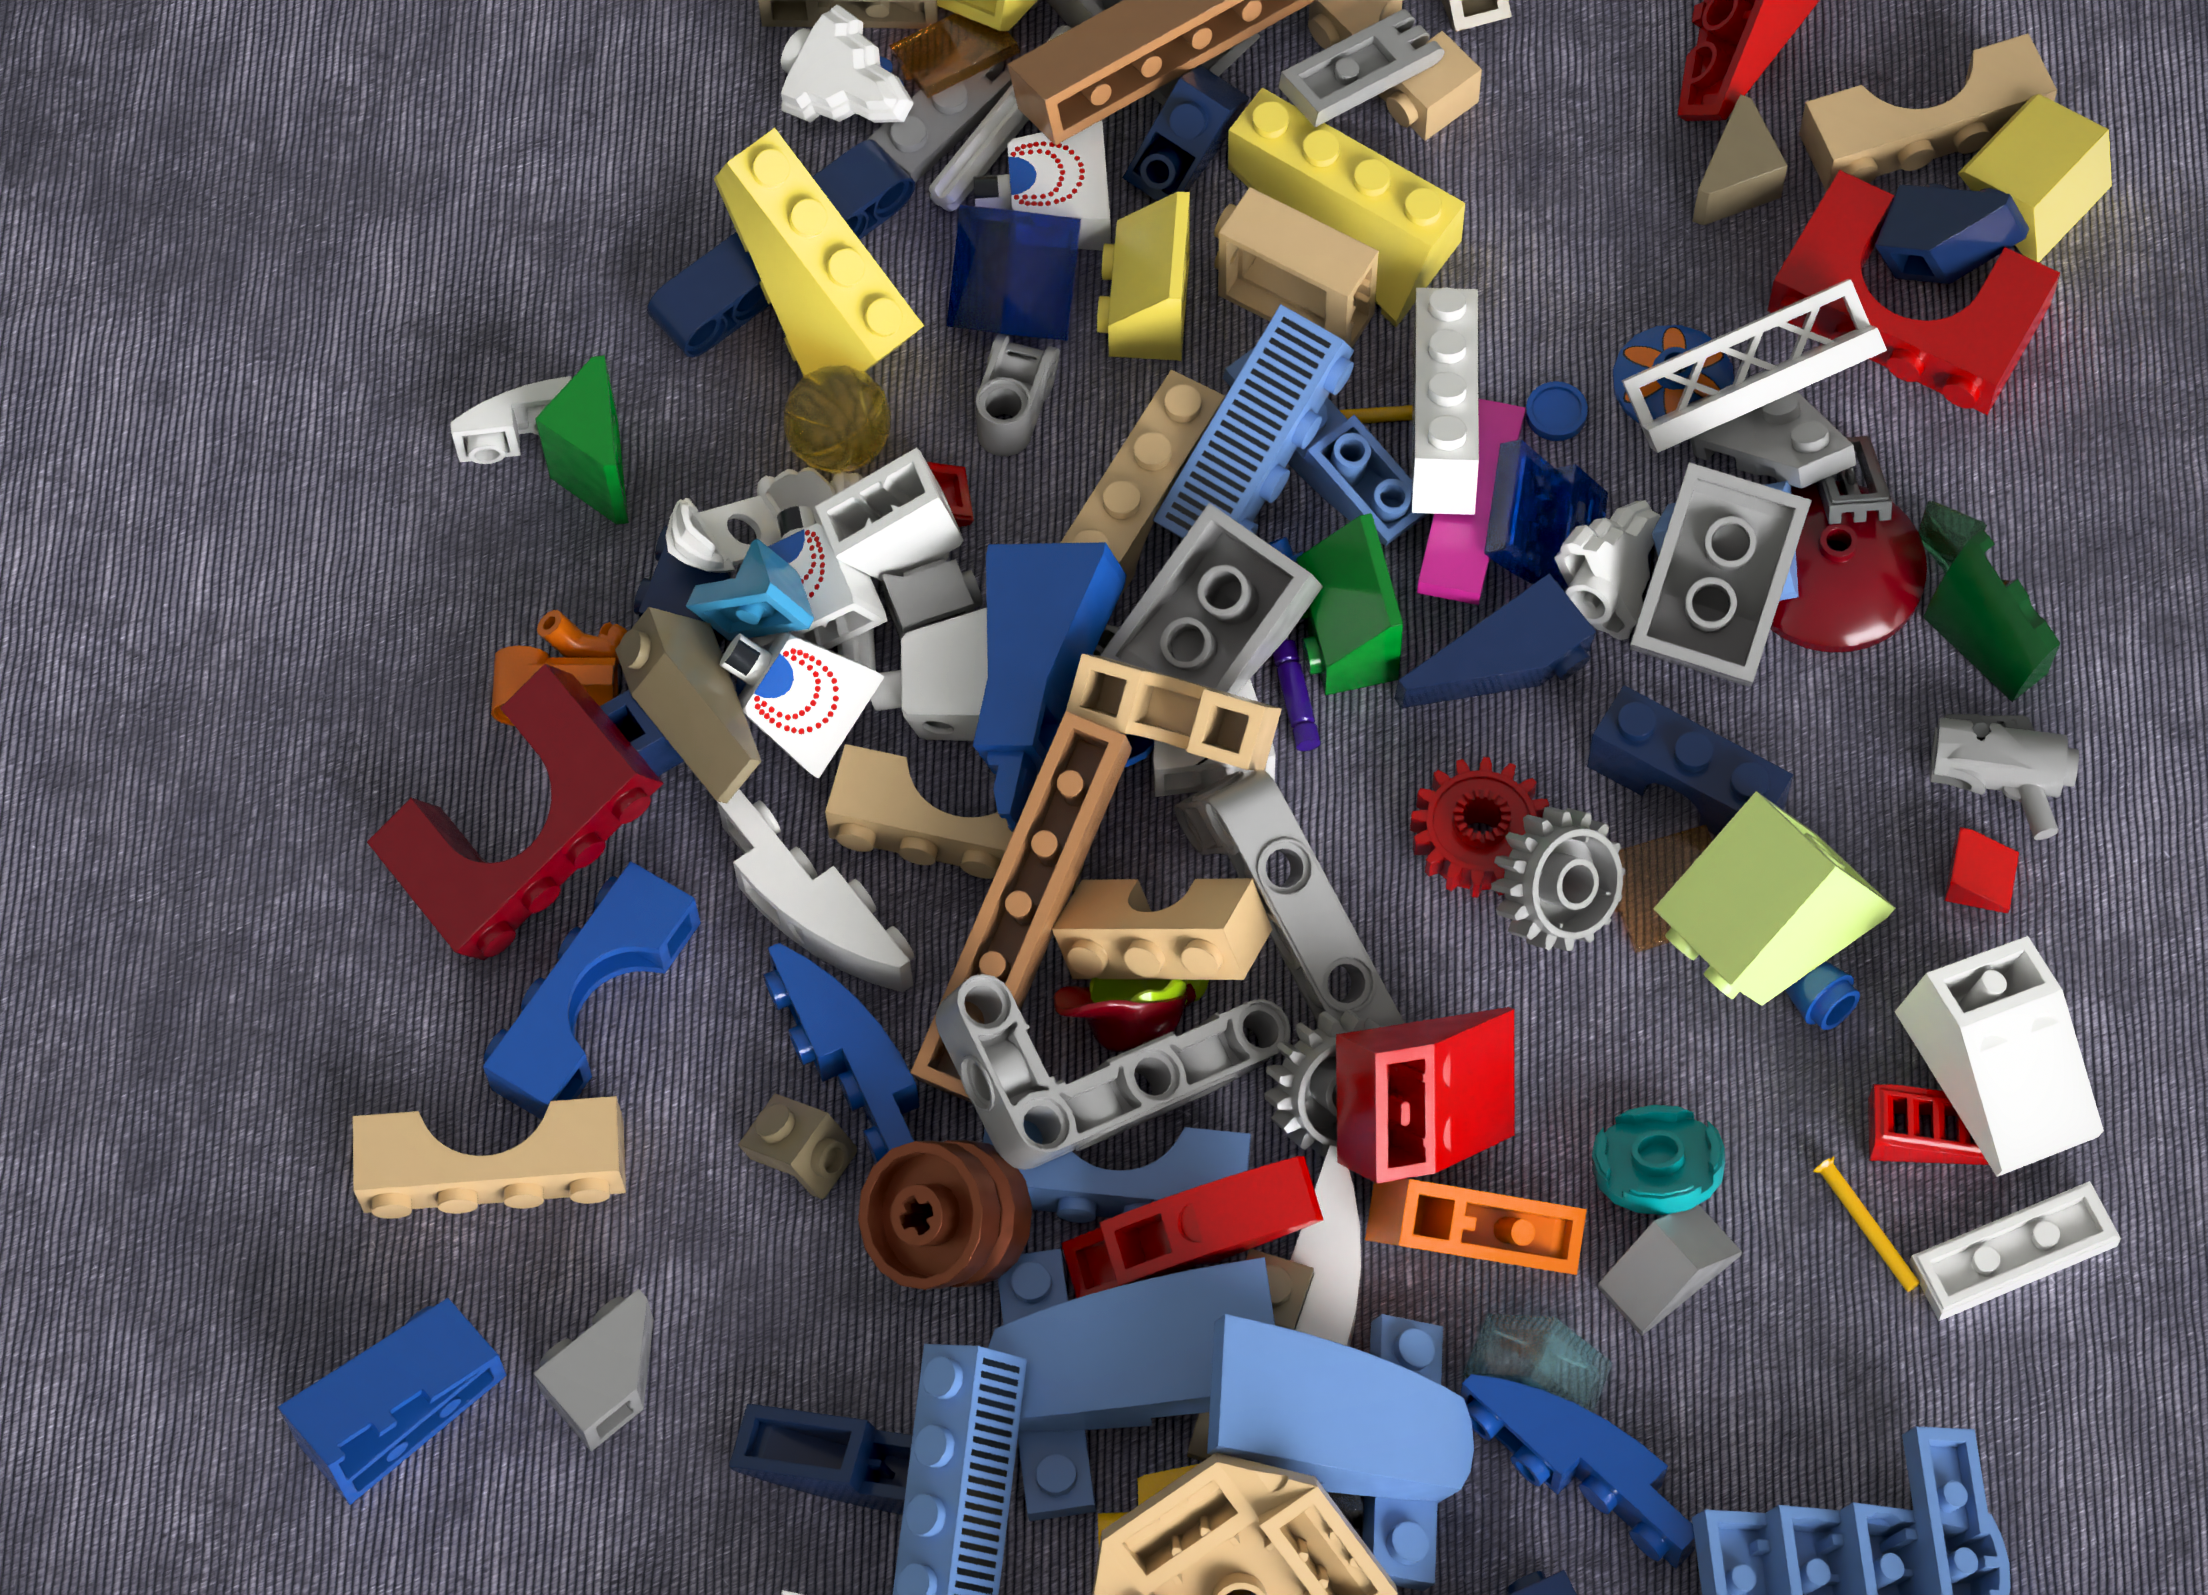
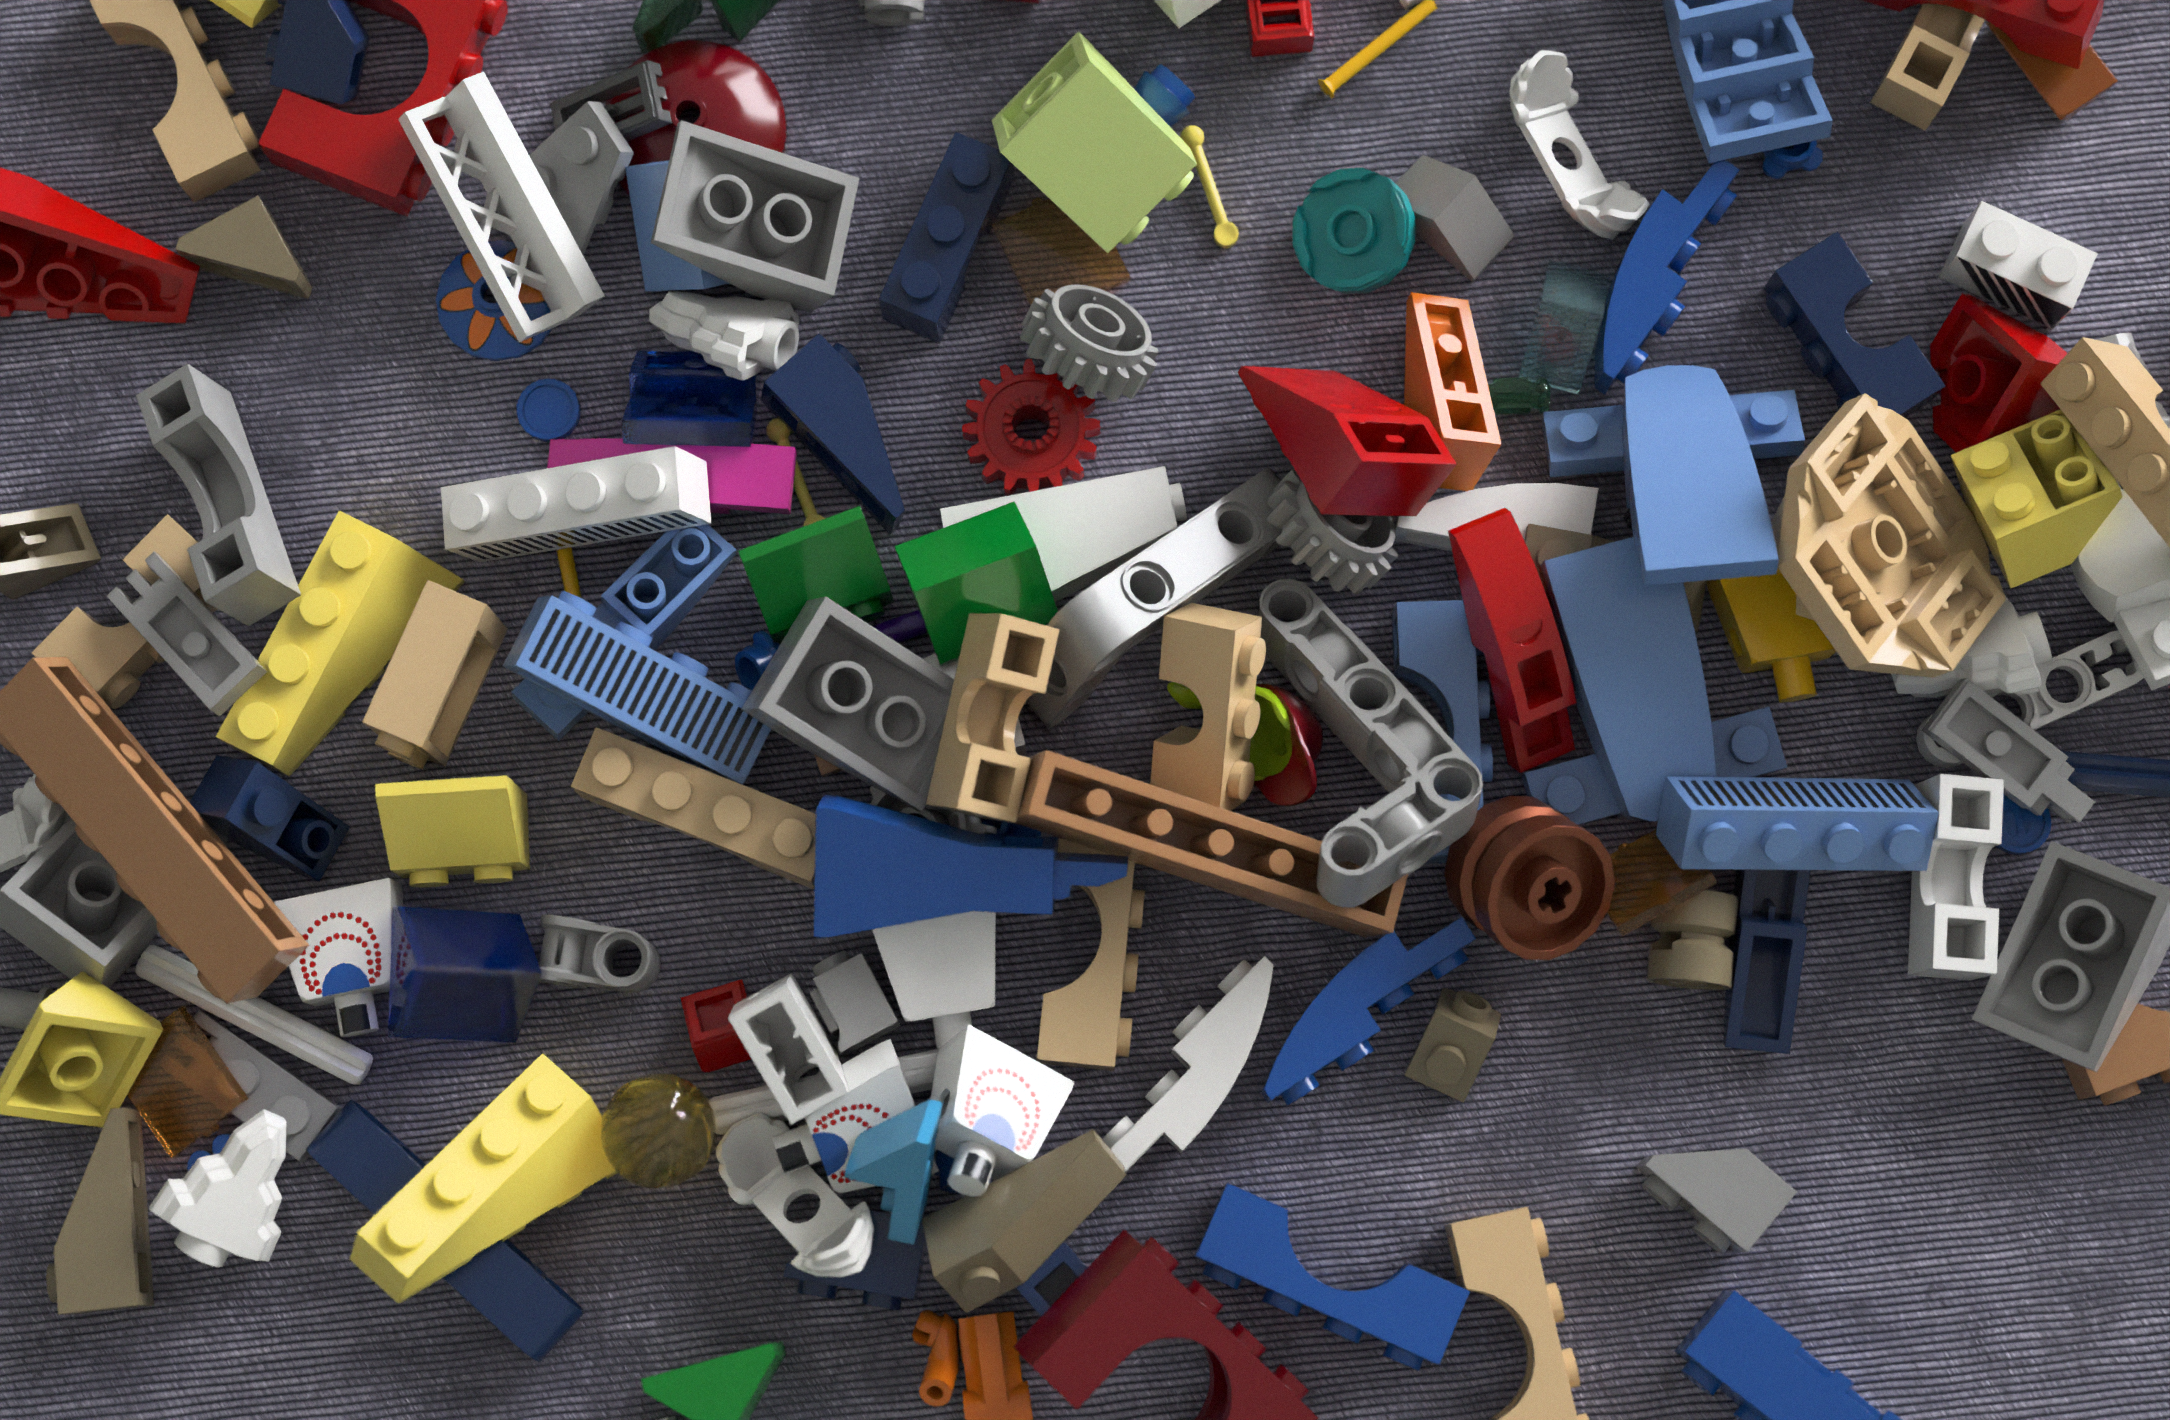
camera: 100 degrees left, 15 degrees up
(861, 1380) = (1693, 943): none -> dark tan wheel
(915, 1319) = (1650, 883): none -> clear orange piece
(1327, 735) = (974, 569): none -> green slope
(1357, 818) = (1091, 524): none -> white slope
(1414, 630) = (779, 433): none -> light yellow hinge
(1464, 1299) = (1519, 395): none -> clear green piece
(1556, 105) = (241, 554): none -> light grey arch
(1674, 1046) = (1226, 232): none -> light yellow hinge
(1778, 1372) = (1539, 105): none -> white piece

